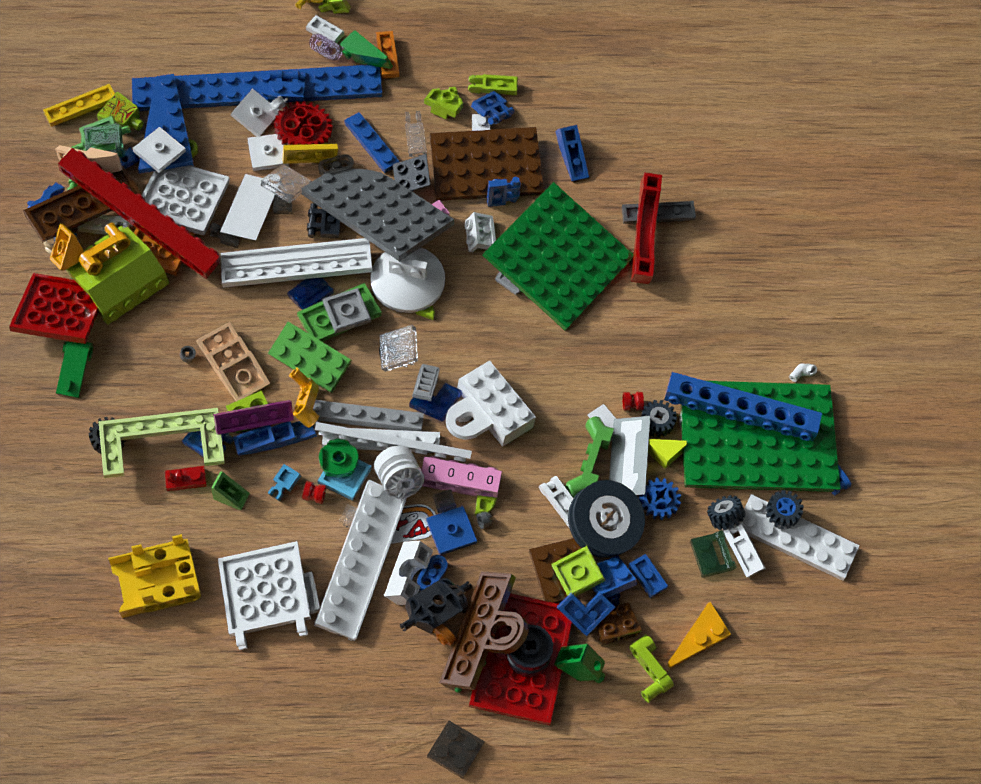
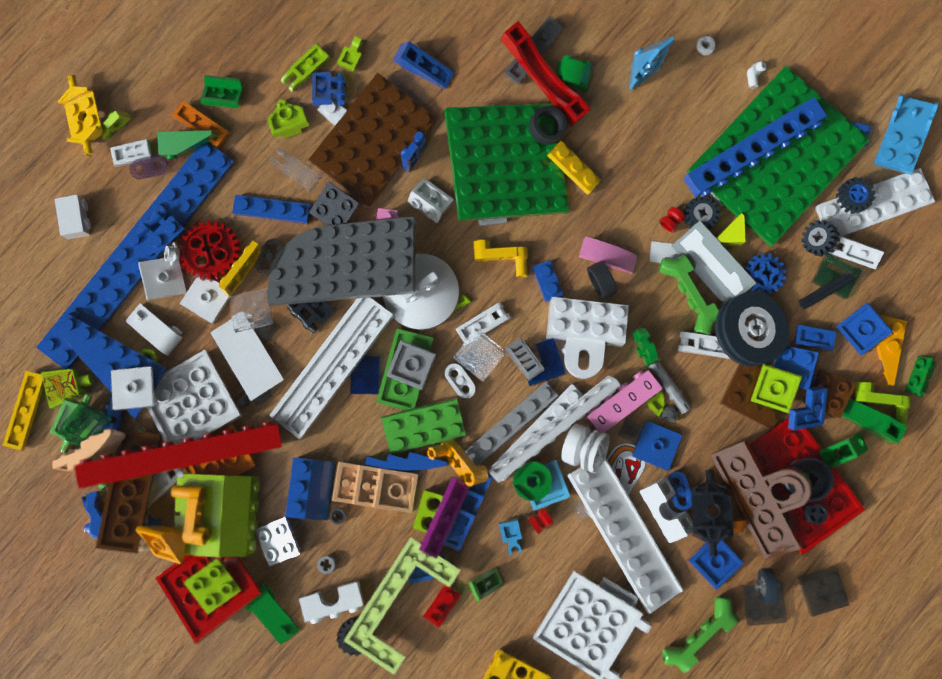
camera: 45 degrees left, 20 degrees up
(62, 304) = (212, 585): none -> lime hinge
(105, 391) = (315, 607): none -> white arch
(133, 330) = (278, 541): none -> white hinge
(144, 382) = (321, 568): none -> light grey bush
(190, 319) = (310, 489): none -> blue slope
(213, 138) = (154, 330): none -> white door
(244, 30) = (72, 217): none -> white brick
(273, 370) = (414, 462): none -> blue slope
(362, 686) = (723, 618): none -> bright green plate
(367, 357) = (460, 381): none -> white plate
(401, 647) = (716, 569): none -> blue plate
(407, 705) = (765, 599): none -> clear smoke plate
(423, 48) = (222, 91): none -> green bracket
(428, 338) = (484, 322): none -> white plate
(479, 298) = (484, 252): none -> yellow beam
(502, 354) = (547, 280): none -> blue plate
(503, 510) = (670, 387): none -> light grey pin
(511, 678) = (820, 514): none -> black wheel
(519, 450) = (645, 348): none -> green plate
(530, 105) = (350, 56): none -> lime plate
(537, 386) = (602, 280): none -> black tyre
(560, 378) = (610, 255): none -> bright pink slope
(601, 304) = (574, 167): none -> yellow plate
(615, 246) = (559, 118): none -> black tyre
(625, 672) = (874, 422): none -> green slope
(671, 252) = (575, 73): none -> green cylinder
(691, 551) = (826, 290): none -> black axle
(691, 605) = (864, 329): none -> blue plate
(691, 683) = (917, 382): none -> green hinge
(727, 286) = (648, 61): none -> dark azure wedge
(786, 317) = (709, 42): none -> white plate
(873, 511) = (906, 134): none -> dark azure hinge

